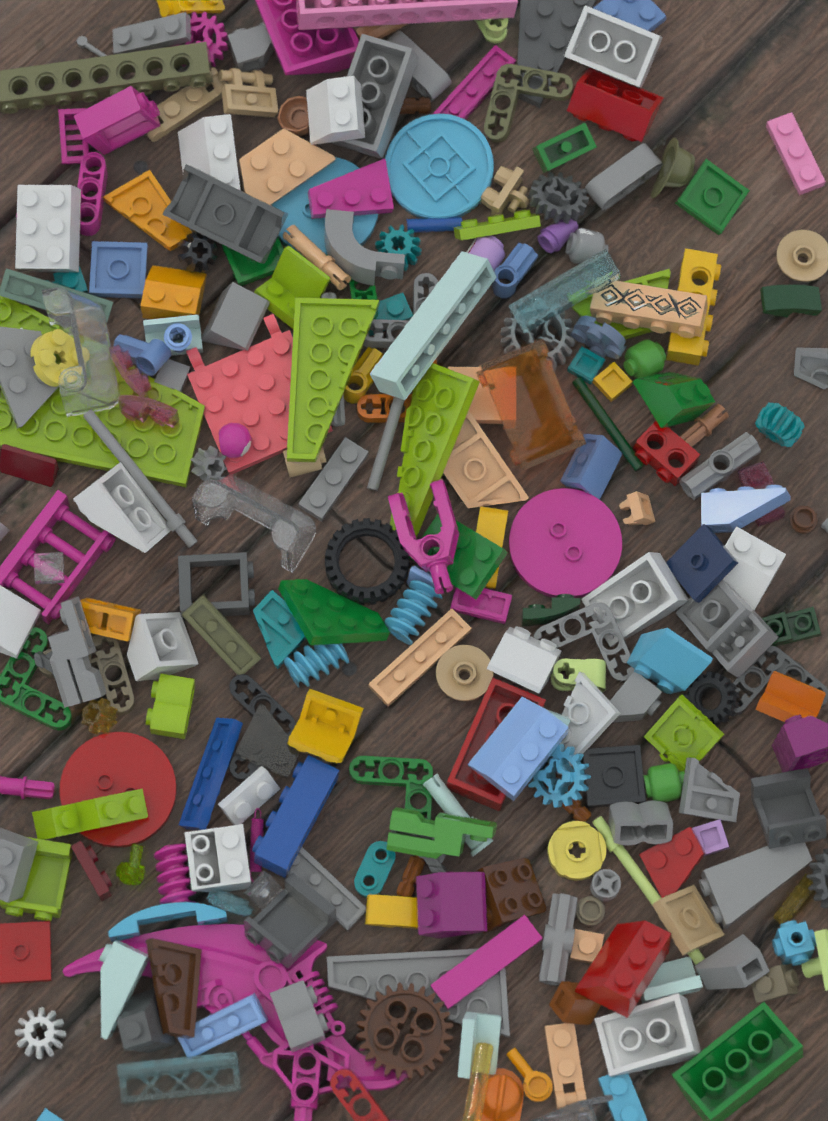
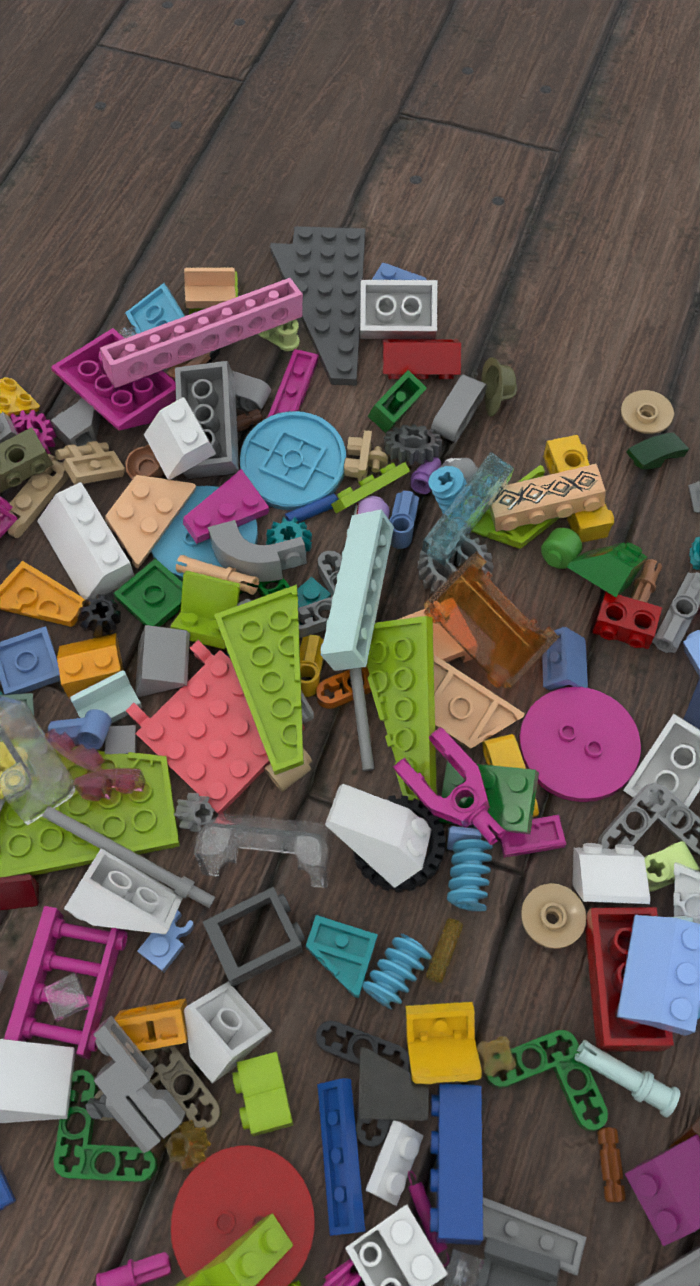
camera: 20 degrees left, 10 degrees down
(141, 564) = (164, 948): none -> light blue plate
(176, 332) = (112, 694): light blue cone -> none
(221, 635) = (285, 989): olive tile -> none
(226, 214) = (112, 566): dark grey piece -> none
(234, 440) = (211, 776): dark pink piece -> none
(329, 616) = (389, 917): green plate -> none
(333, 479) = (325, 774): light grey plate -> none
(350, 544) = (380, 832): none -> white slope
(363, 662) = (444, 950): none -> clear yellow axle
(367, 762) = (499, 1046): none -> clear yellow plate
(374, 868) = (569, 1183): teal plate -> none
(391, 911) = (616, 1227): yellow slope -> none
(419, 657) = (499, 921): light nougat plate -> none
(436, 838) = (626, 1116): bright green plate -> none
(512, 90) = (328, 374): olive beam -> none
(559, 607) = (607, 810): dark green slope -> none
(560, 257) = (446, 485): none -> medium azure piece
(586, 365) = (510, 575): teal tile -> none
(602, 340) = (514, 543): sand blue plate -> none
(608, 424) = (558, 618): dark green bar -> none
(612, 381) = (543, 578): yellow plate -> none
(640, 509) = (636, 684): light nougat tile -> none
(712, 197) = (542, 396): green plate -> none
(795, 153) = (590, 340): bright pink plate -> none

